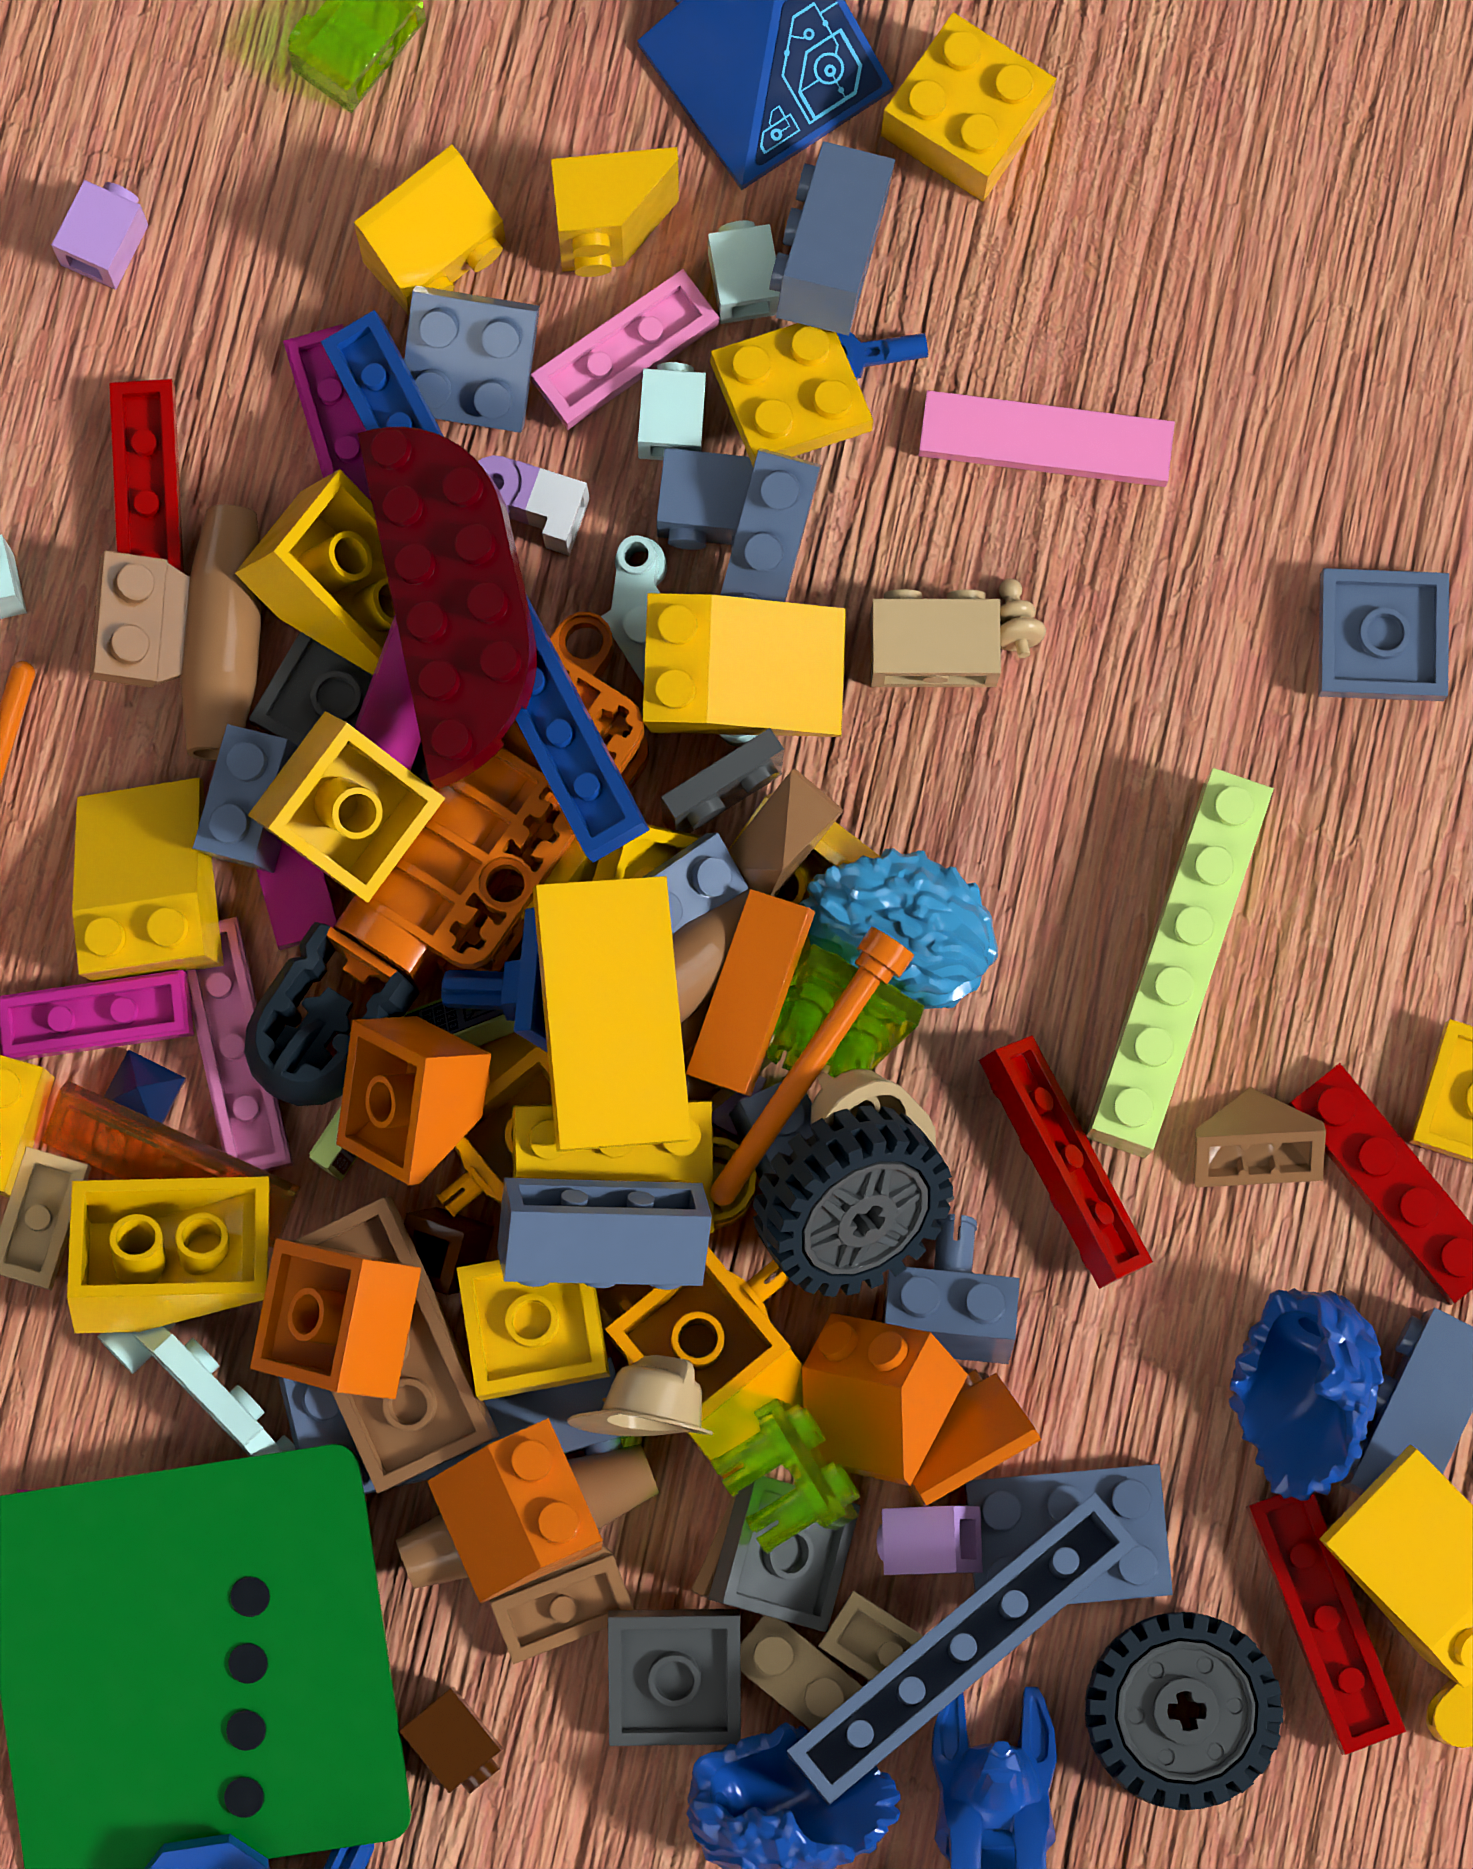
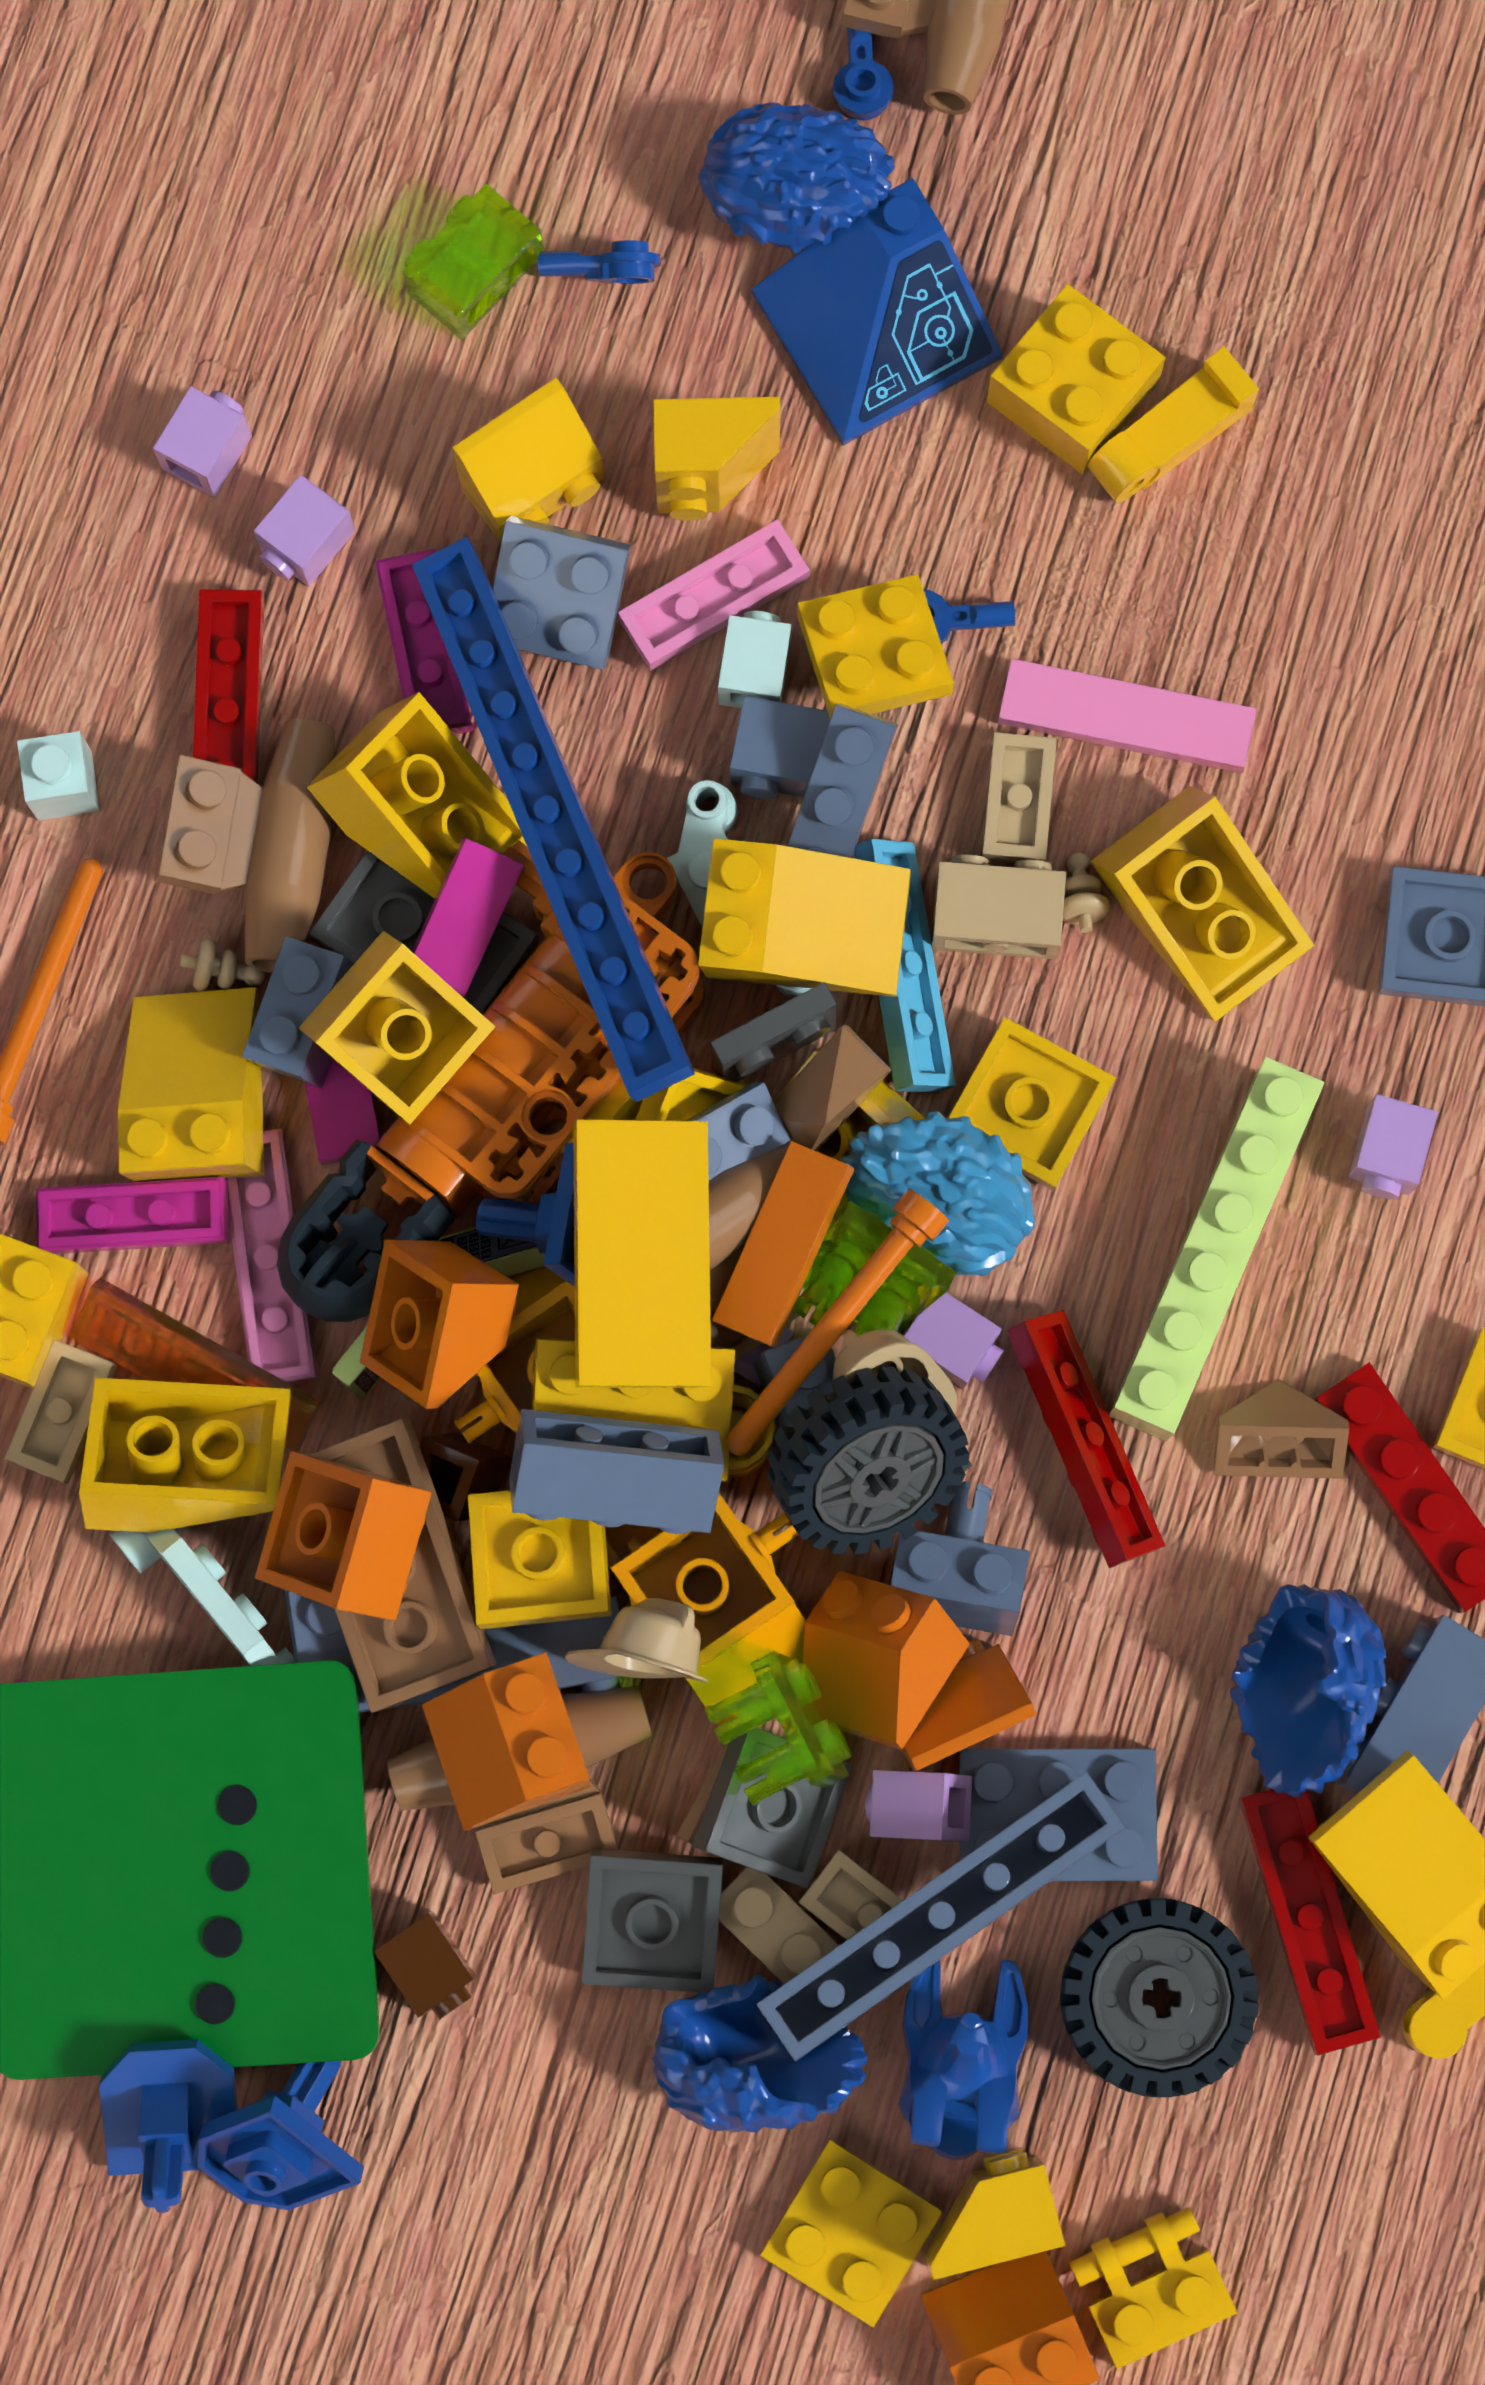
camera: 10 degrees right, 0 degrees up
(145, 1086) = (177, 1290): dark blue slope -> none
(166, 761) = (224, 969): none -> tan hair
(208, 317) = (303, 532): none -> lavender brick
(452, 595) = (519, 825): dark red plate -> none
(511, 24) = (626, 264): none -> blue plate
(540, 499) = (608, 733): white leg -> none
(742, 270) = (839, 526): light aqua brick -> none
(831, 237) = (928, 499): sand blue brick -> none
(861, 756) = (915, 1017): none -> medium azure plate
(930, 1073) = (957, 1340): none -> lavender brick
(946, 528) = (1019, 797): none -> tan plate
(986, 828) = (1034, 1099): none -> yellow plate
(1071, 147) = (1175, 427): none -> yellow leg
(1137, 617) = (1203, 901): none -> yellow slope
(1345, 847) = (1392, 1147): none -> lavender brick

